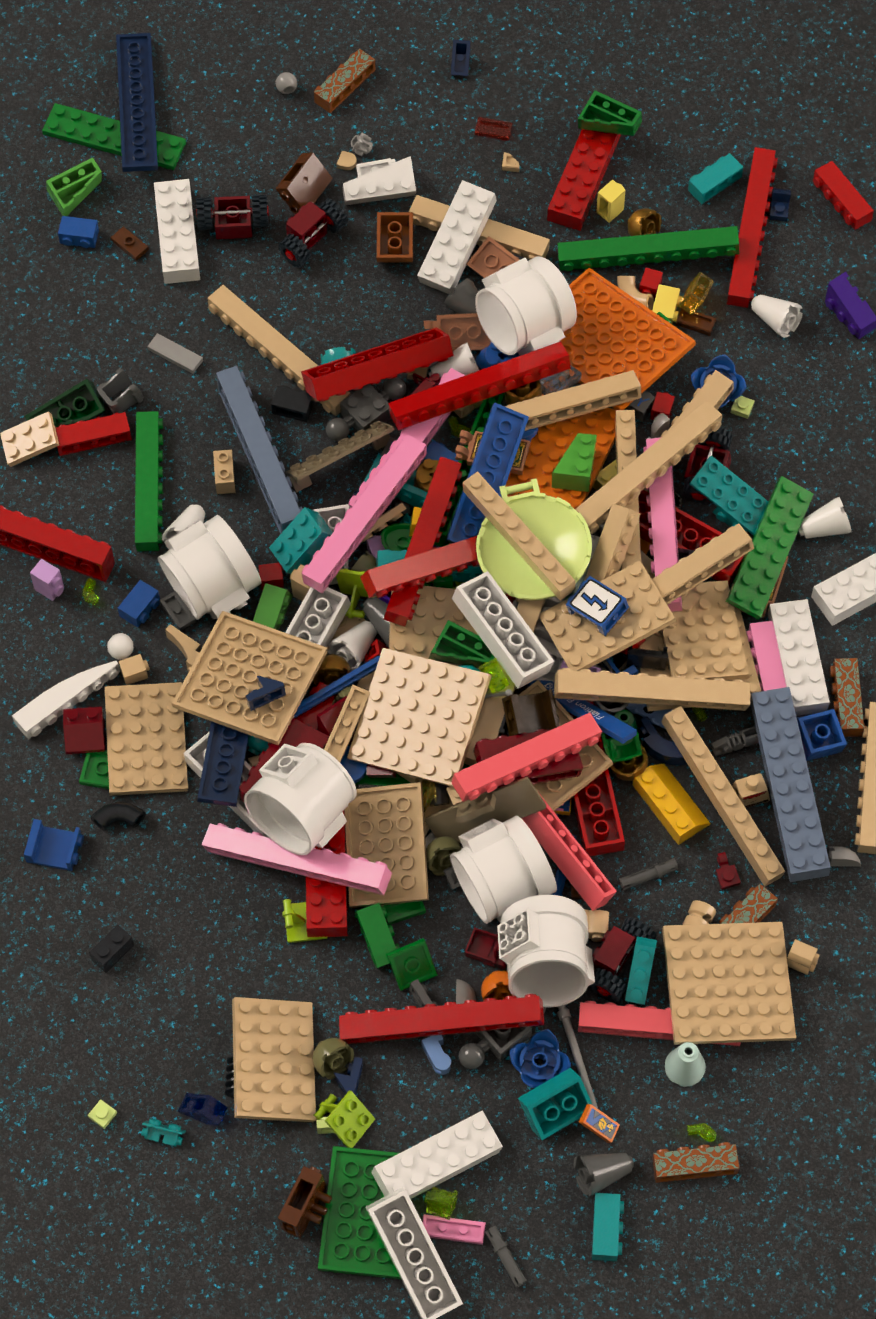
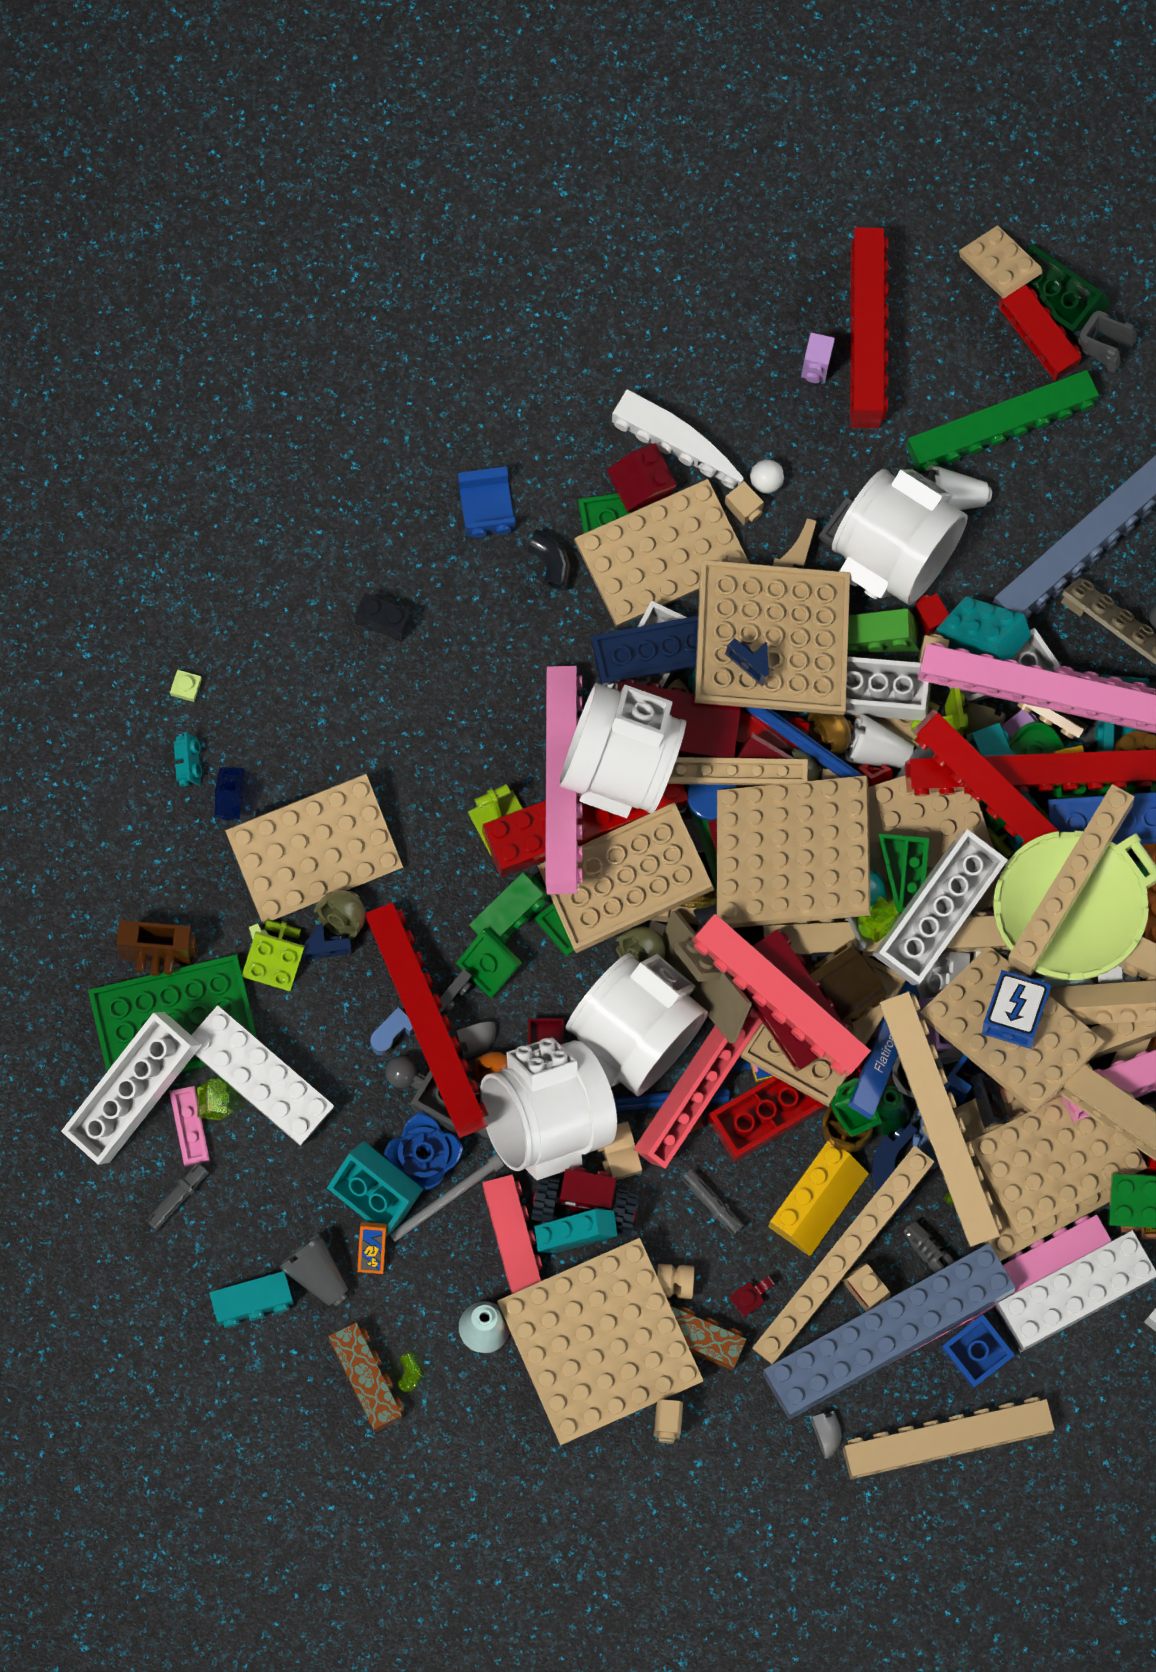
camera: 65 degrees right, 10 degrees up
(88, 593) = (825, 412): clear neon green arm -> none
(139, 603) = (833, 476): blue brick -> none
(224, 471) = (1051, 505): tan brick -> none
(847, 696) = (1047, 1370): dark orange brick -> none

